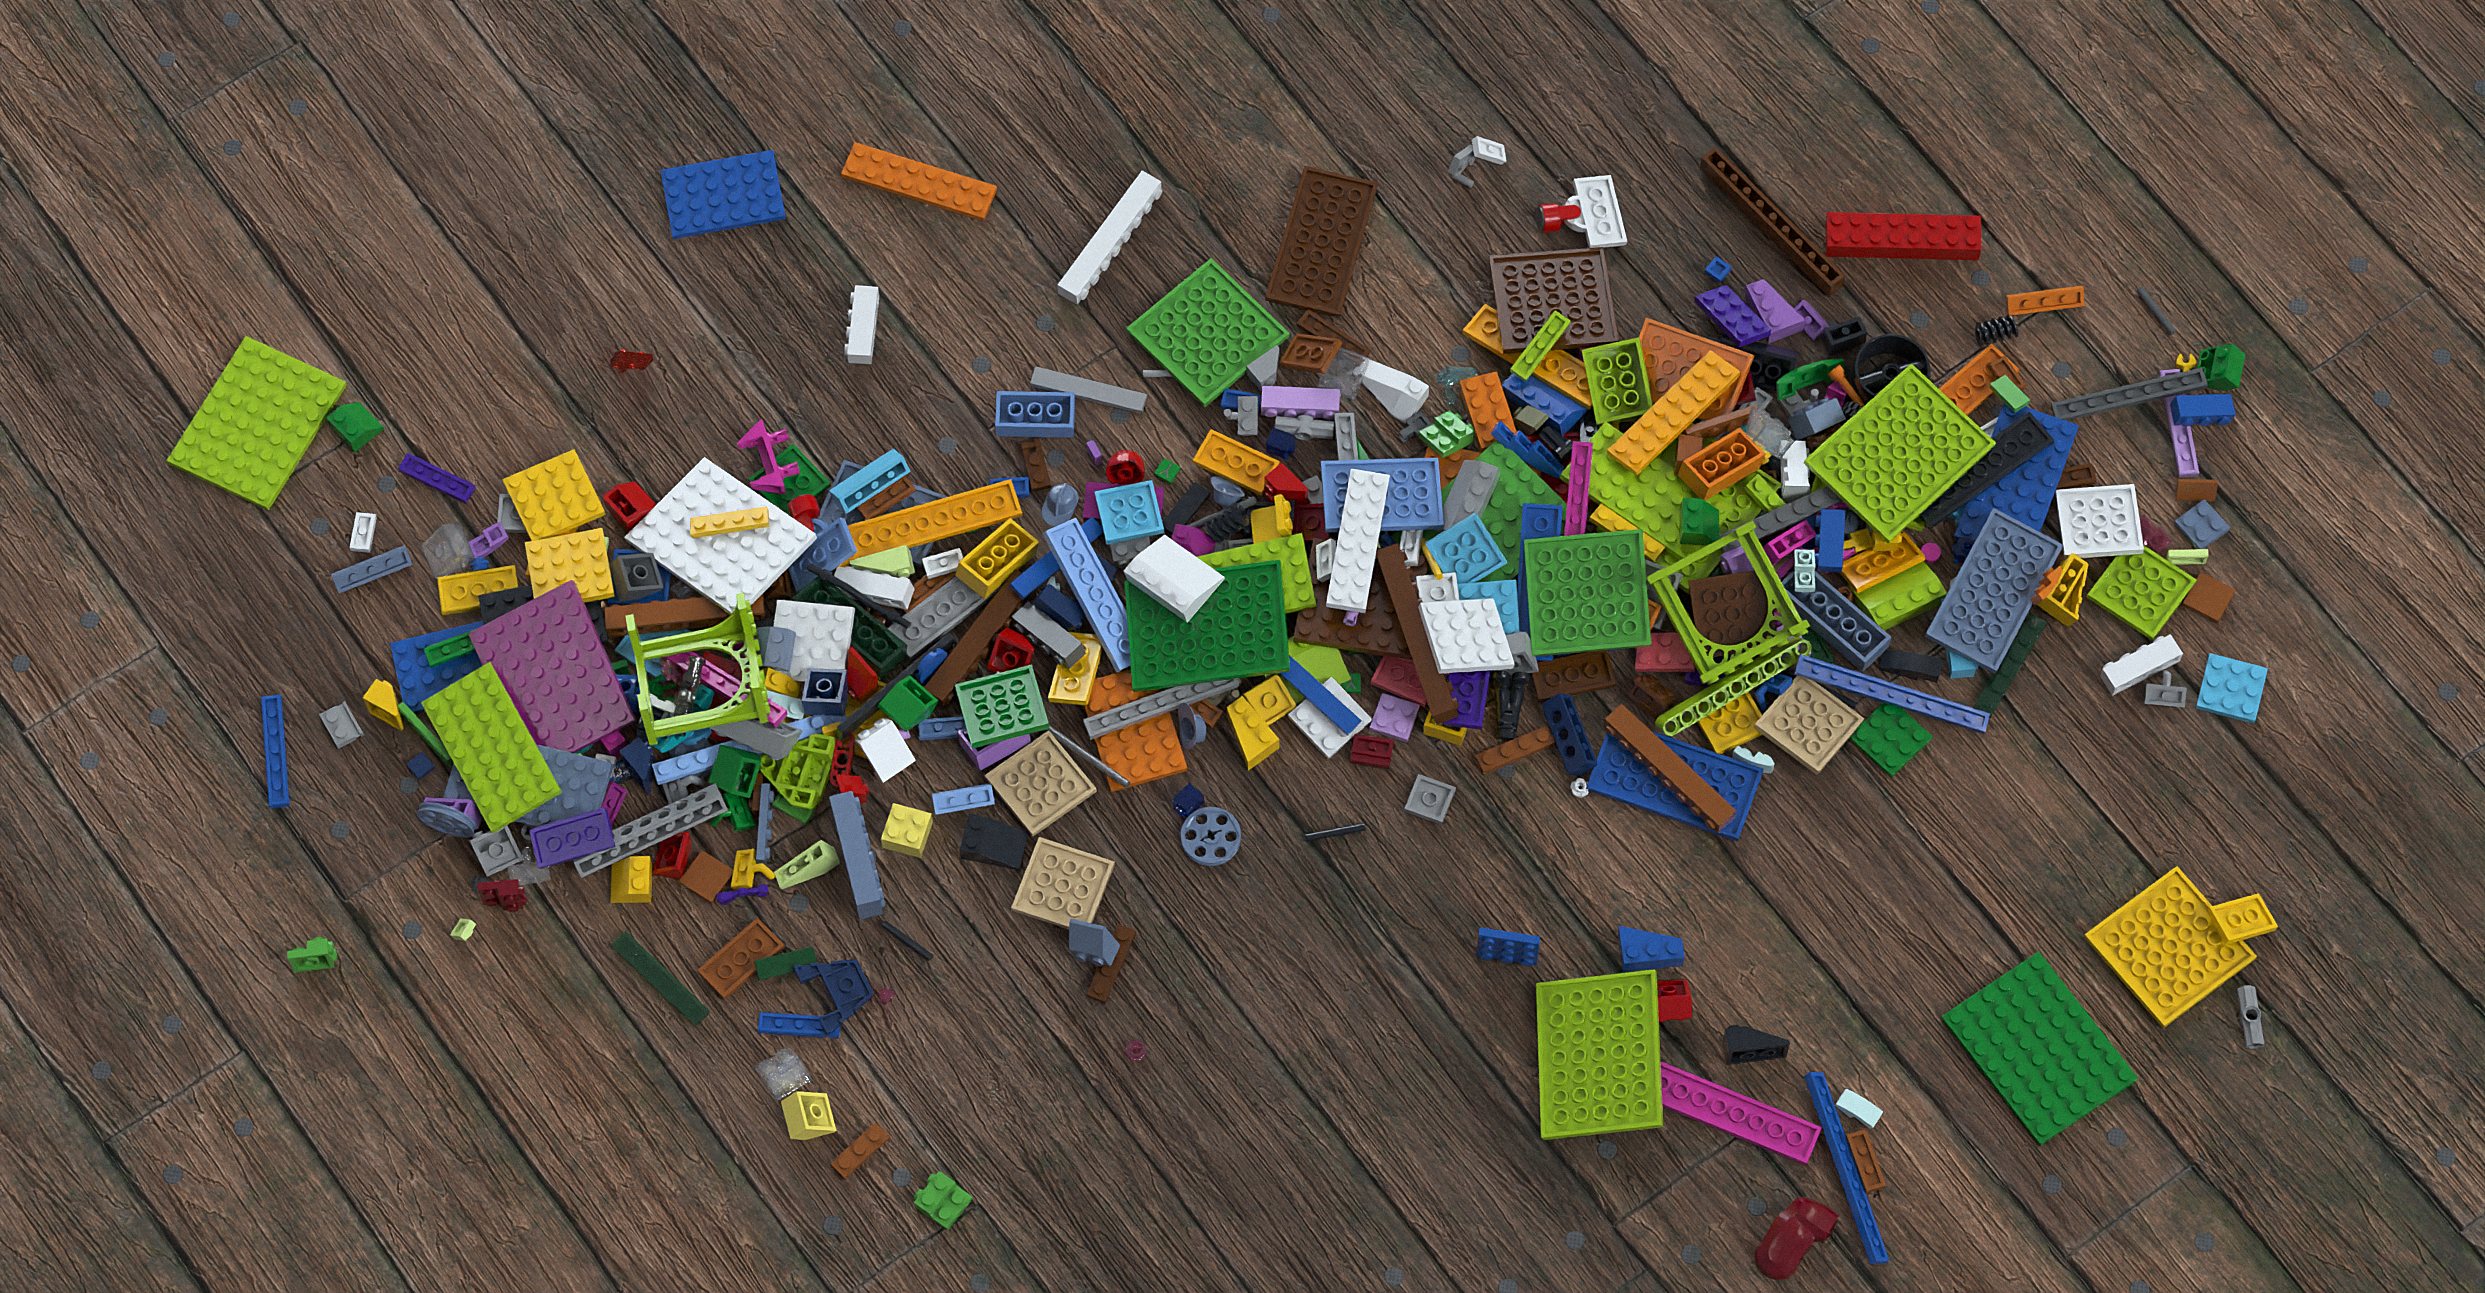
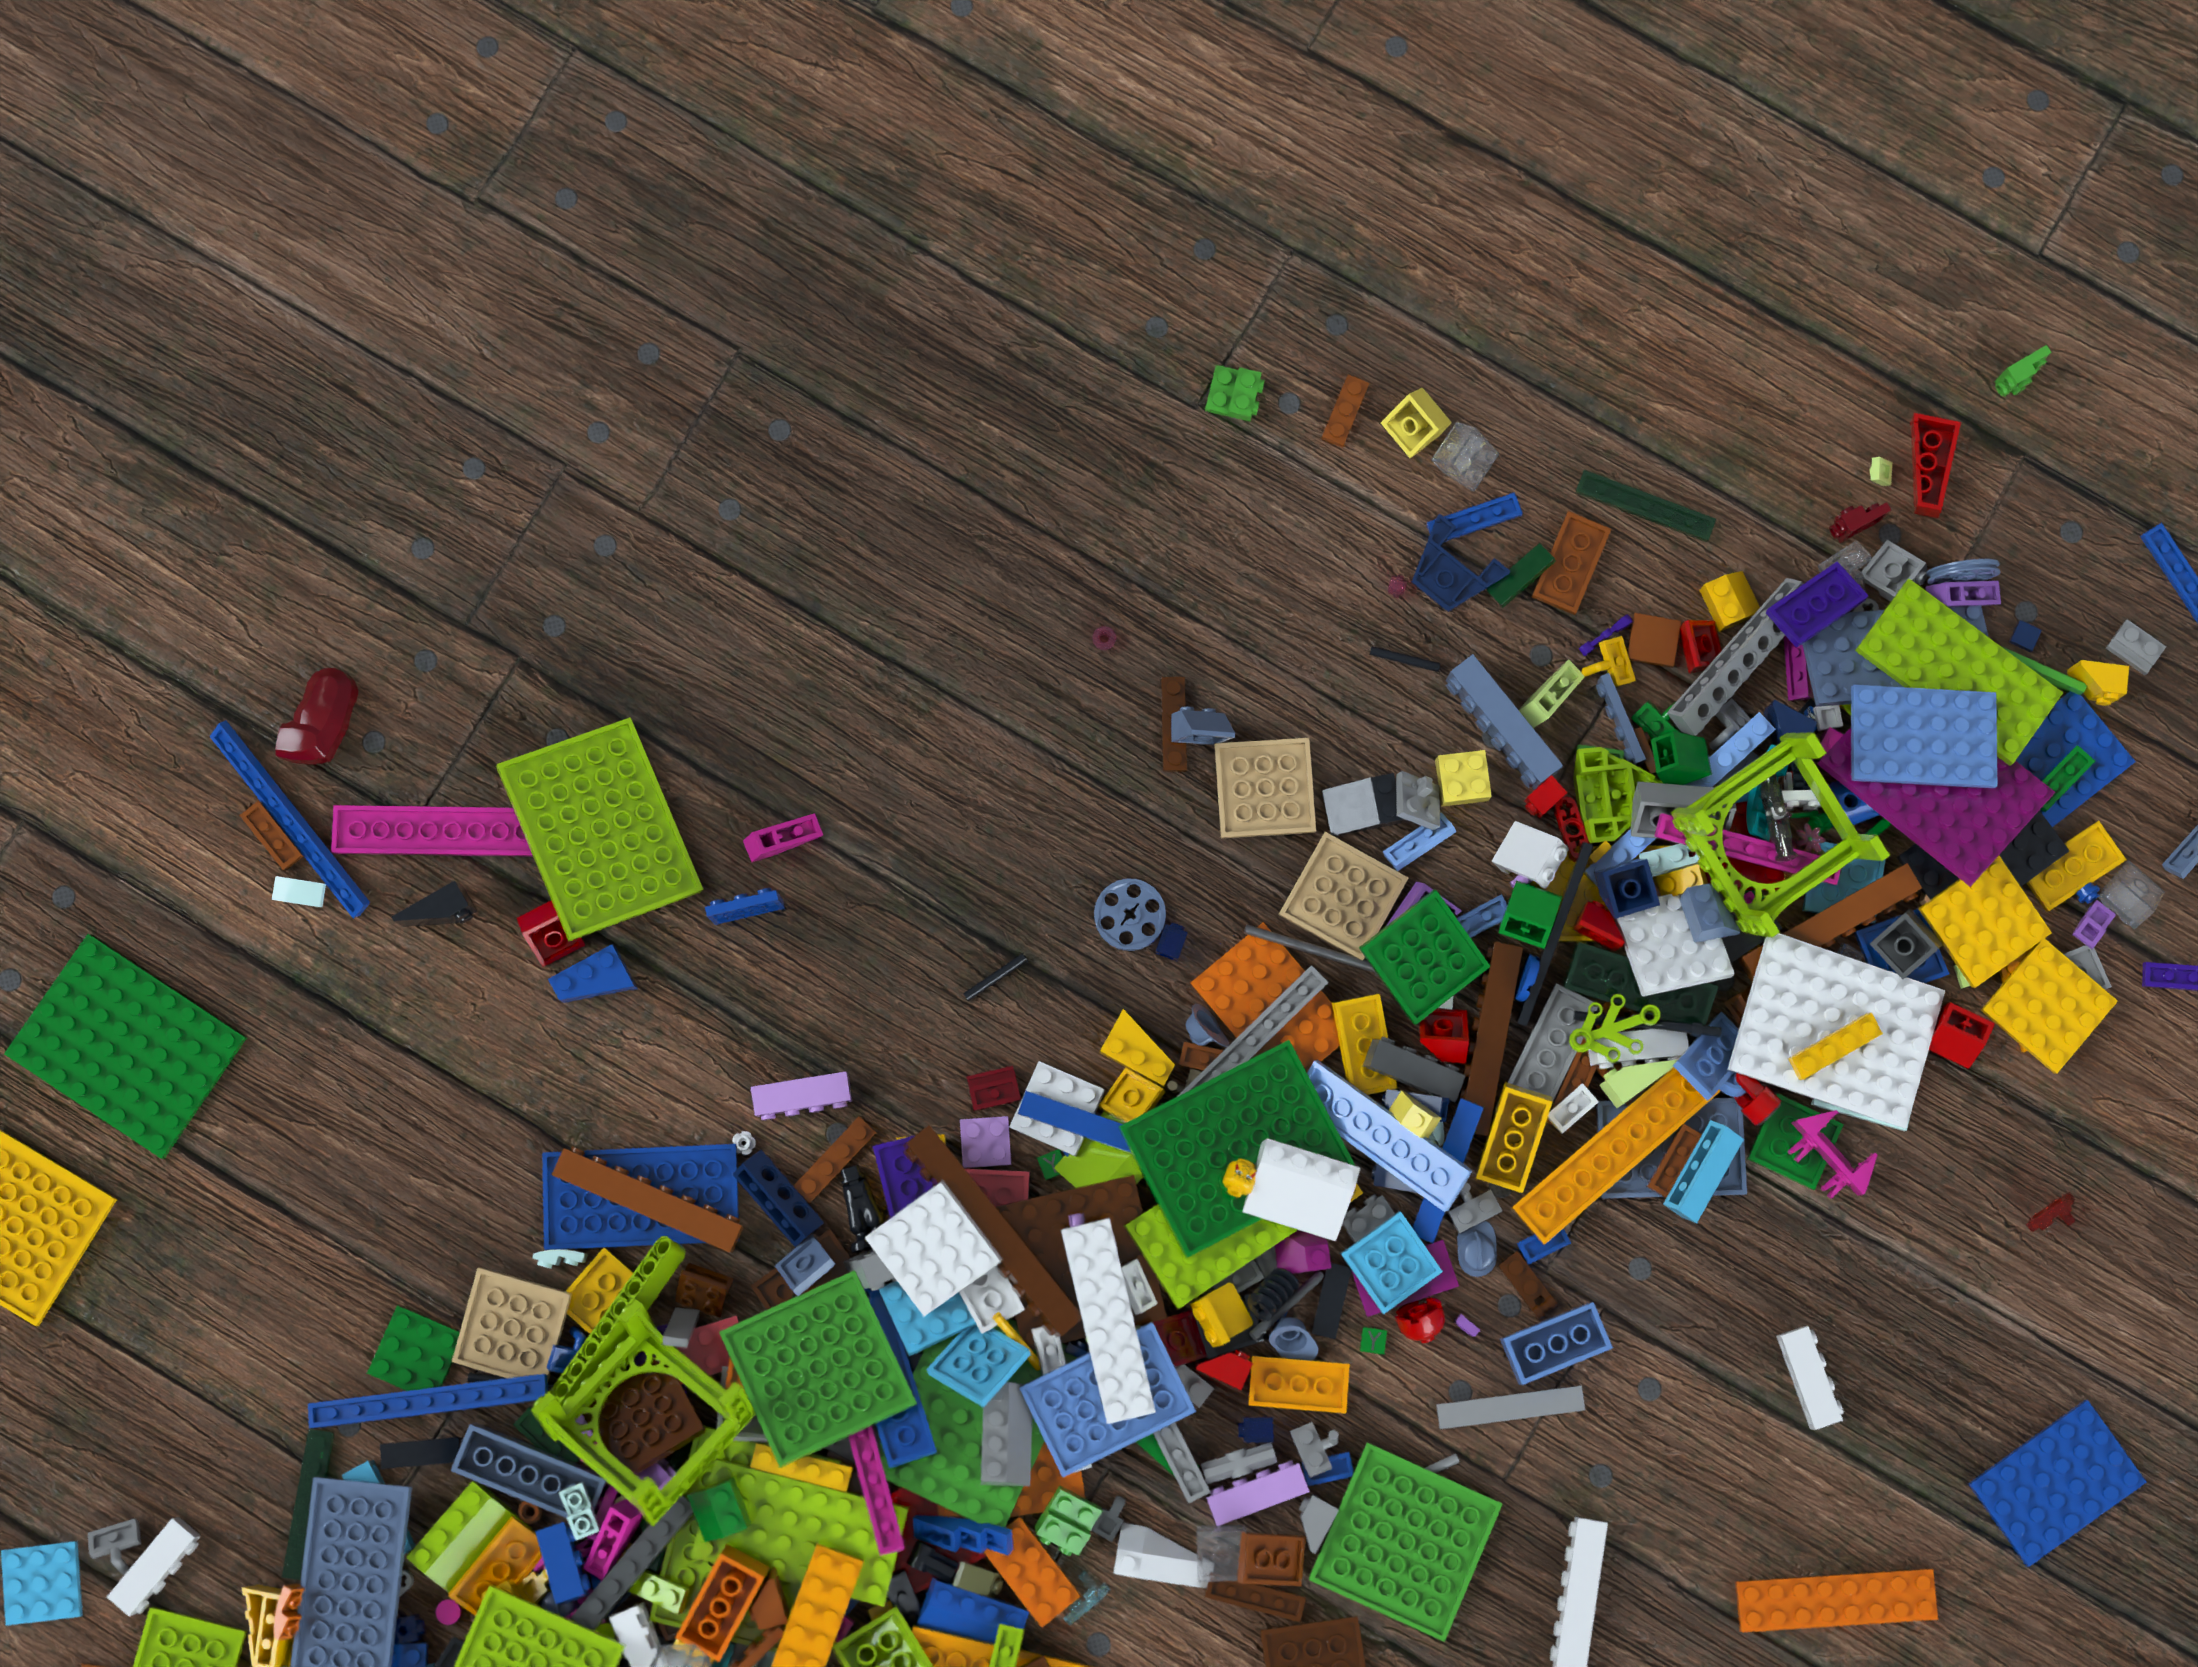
camera: 155 degrees right, 15 degrees up
(417, 922) = (1932, 458): none -> red wedge
(548, 702) = (1923, 736): none -> medium blue plate
(889, 598) = (1610, 1029): none -> lime plant
(950, 824) = (1418, 800): none -> light grey hinge
(1040, 525) = (1473, 1210): none -> light grey plate
(1066, 594) = (1414, 1115): none -> light yellow slope
(1215, 597) = (1240, 1177): none -> yellow head
(1430, 799) = (905, 1057): light grey plate -> none
(1458, 997) = (782, 837): none -> dark pink slope
(1521, 803) = (801, 1094): none -> lavender brick
(1568, 673) = (805, 1265): none -> sand blue plate
(1679, 667) = (681, 1327): none -> light grey tile

